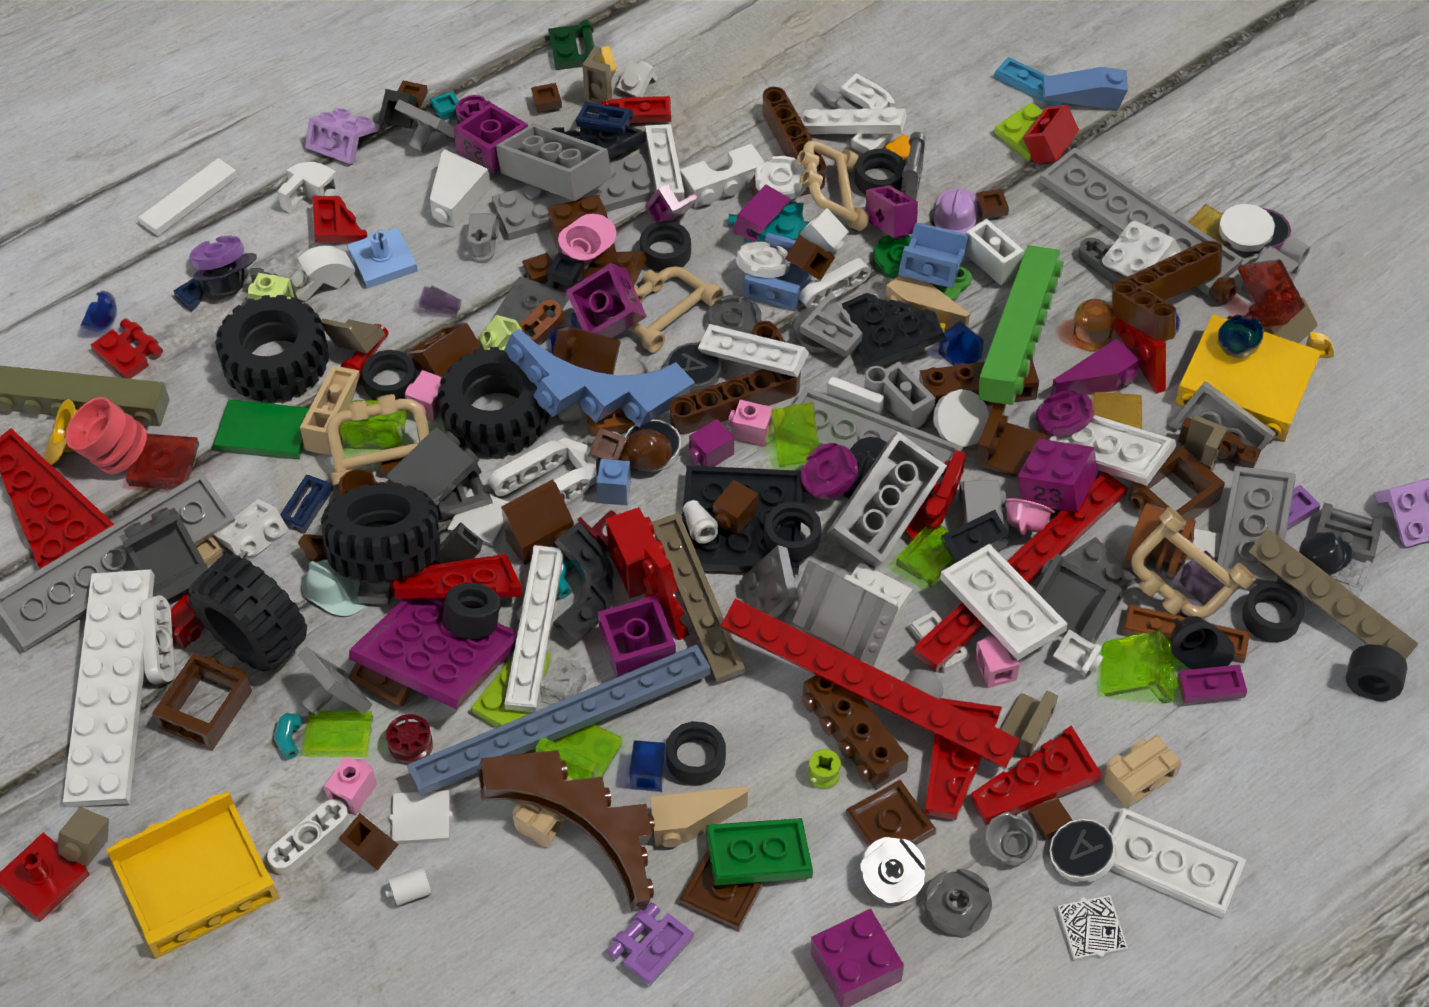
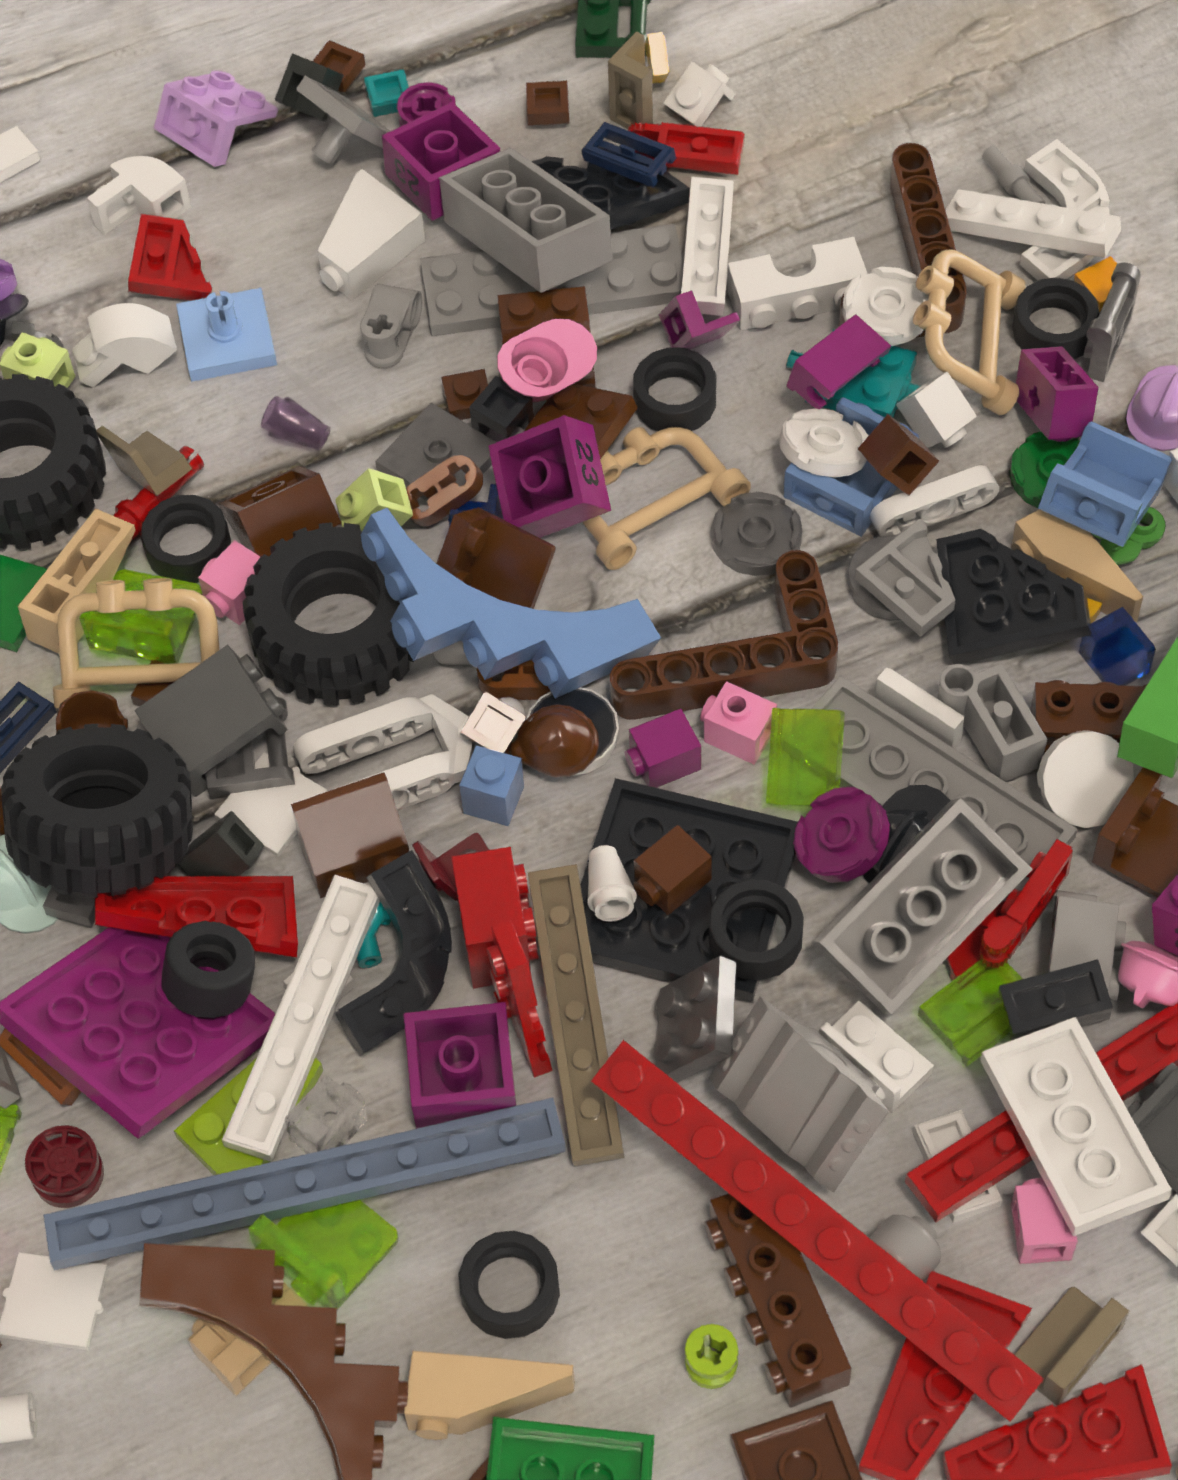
camera: 15 degrees right, 5 degrees up
(647, 766) = (424, 1291): clear blue panel -> none
(700, 367) = (677, 602): black tile -> none
(753, 350) = (768, 601): white plate -> none

